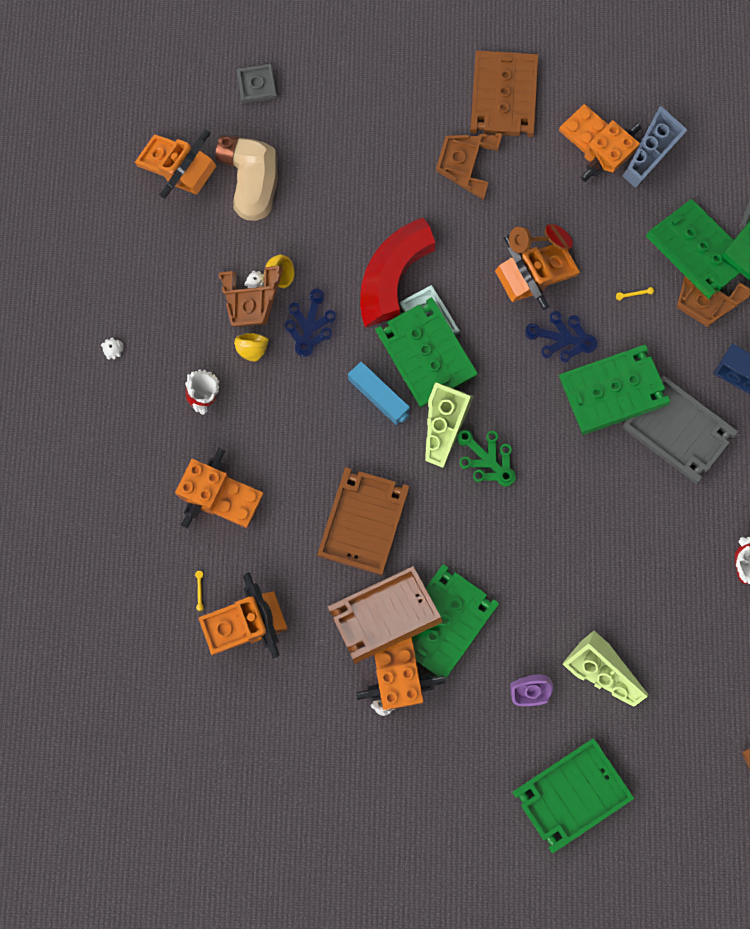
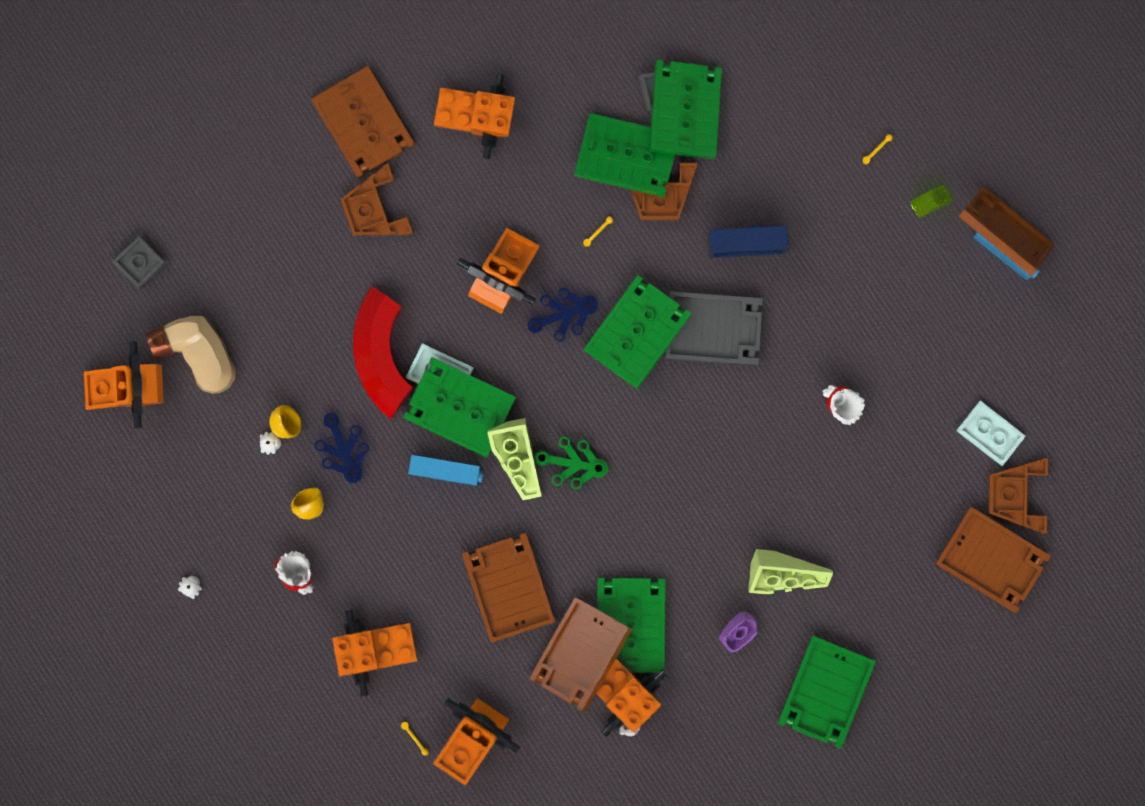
camera: 35 degrees left, 10 degrees up
(250, 305) = (281, 470): dark orange wing -> none
(521, 238) = (498, 227): dark orange piece -> none
(656, 143) = (528, 82): sand blue wedge -> none

